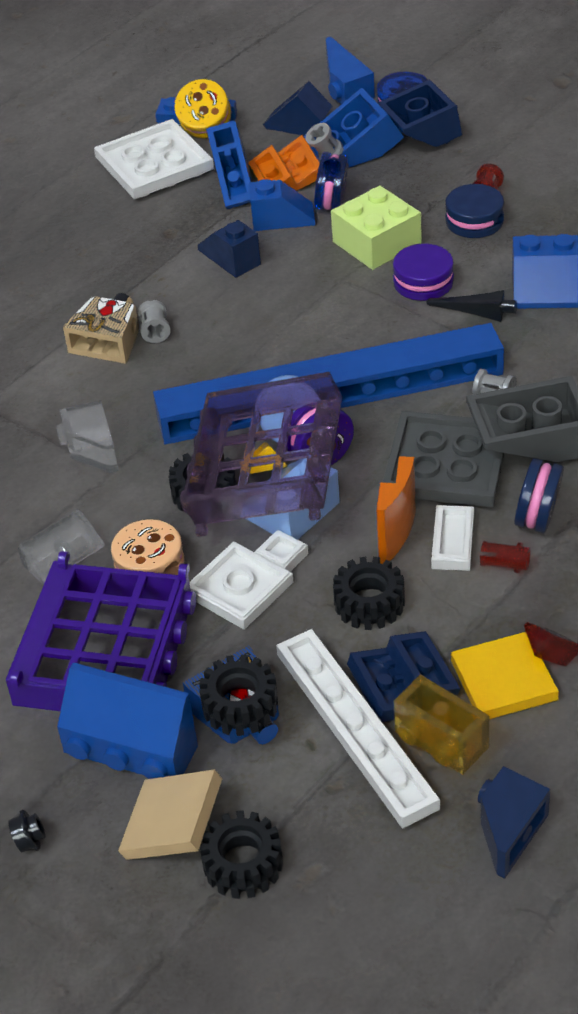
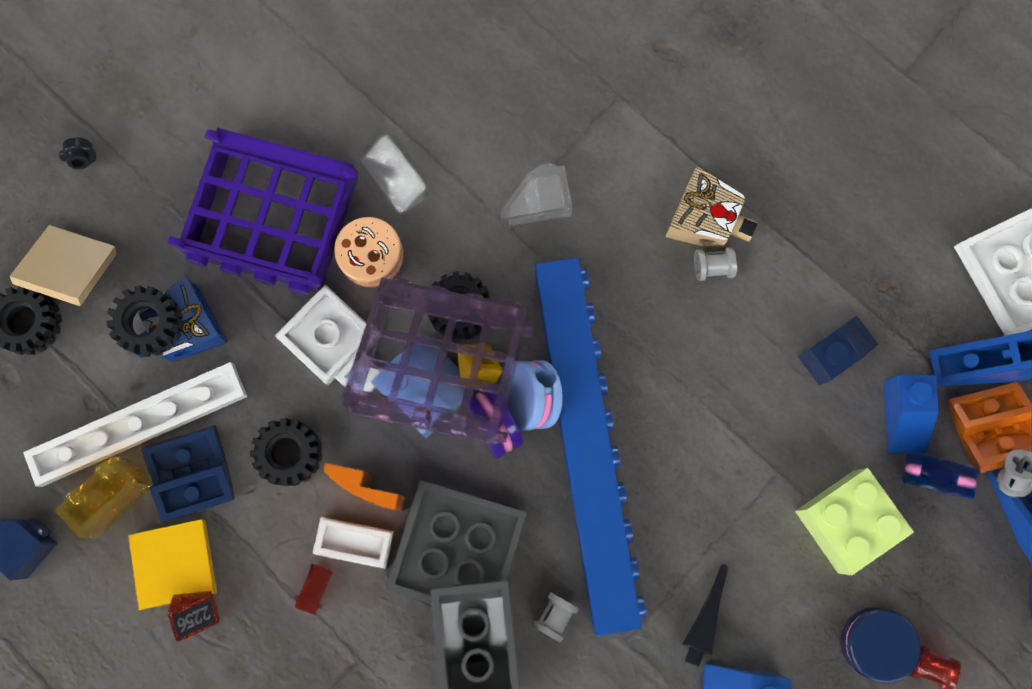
camera: 90 degrees right, 35 degrees up
(126, 723) = (143, 247): blue slope -> none
(423, 272) = (768, 567): dark purple head -> none
(538, 495) = (367, 635): dark blue head -> none

